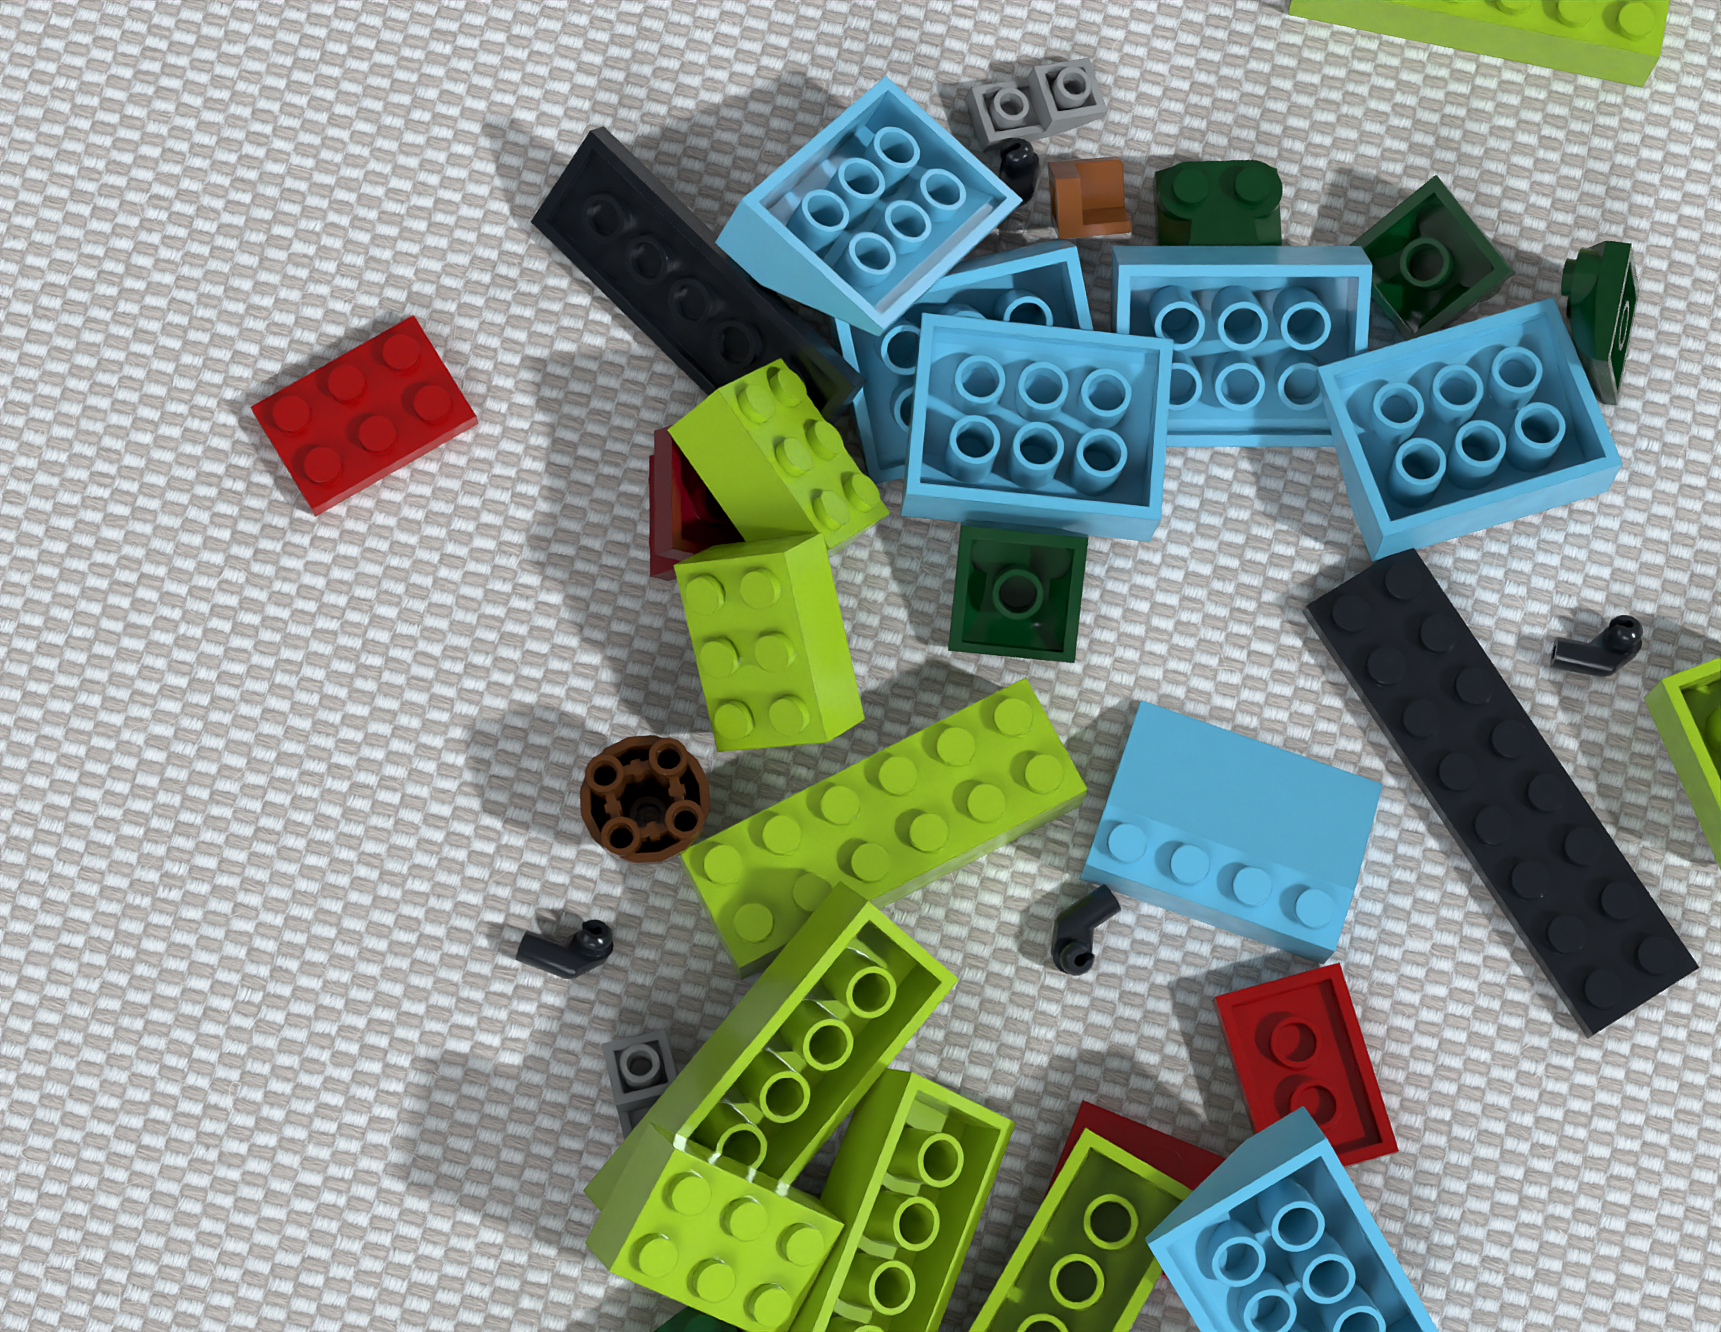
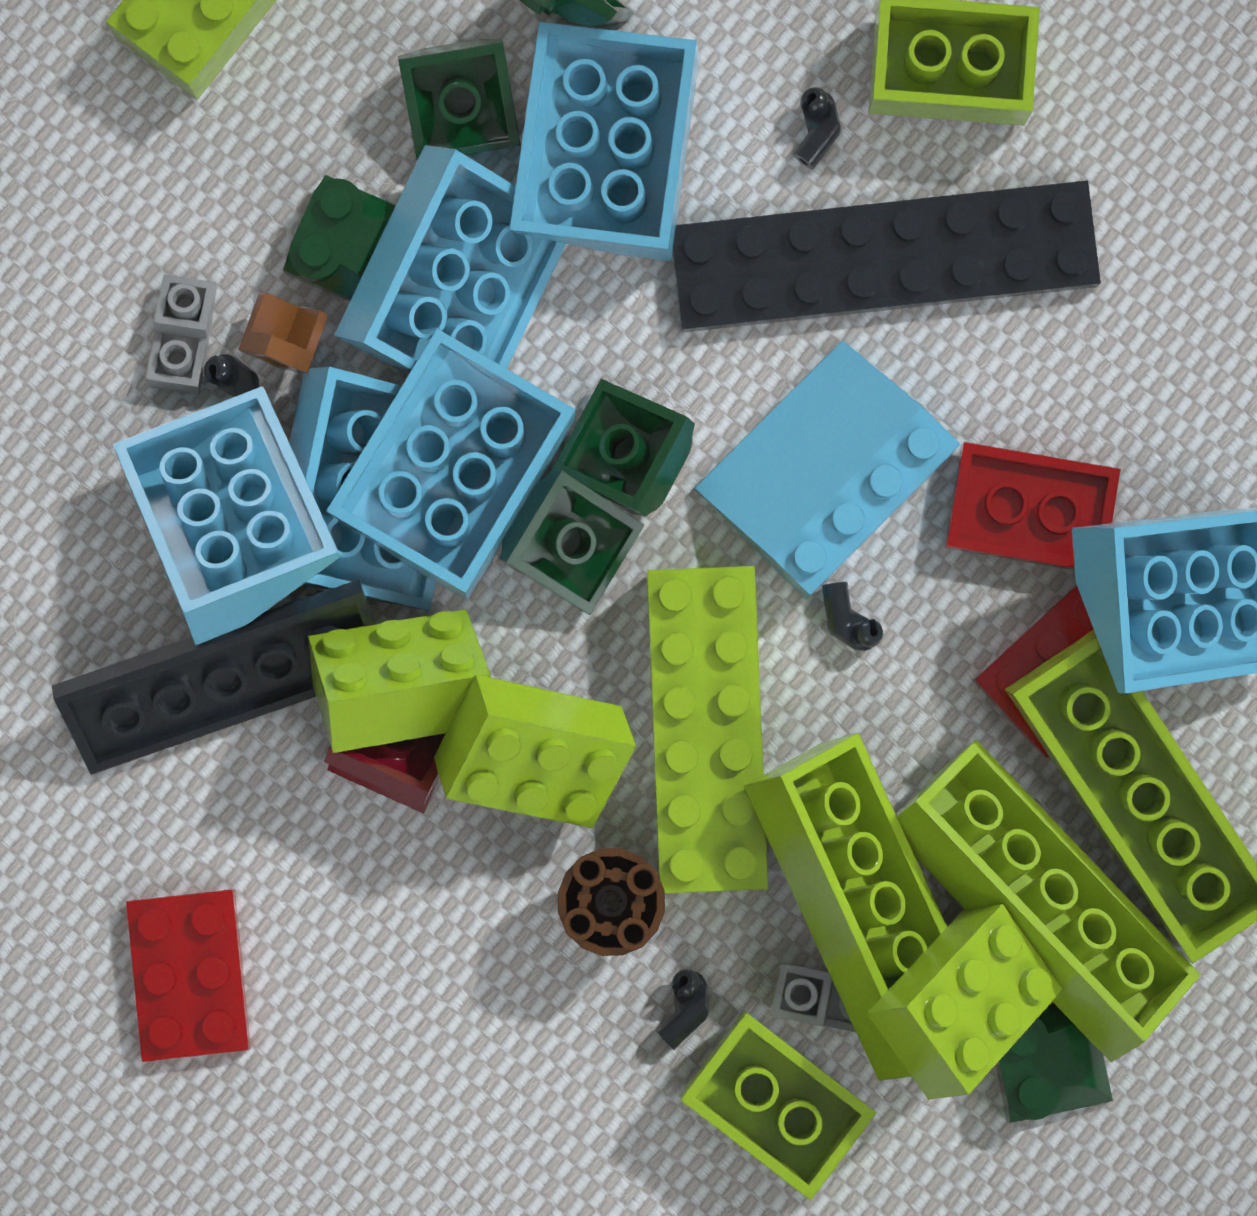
camera: 65 degrees left, 10 degrees up
(505, 1092) = (777, 1105): none -> lime brick
(1146, 606) = (627, 448): none -> dark green slope

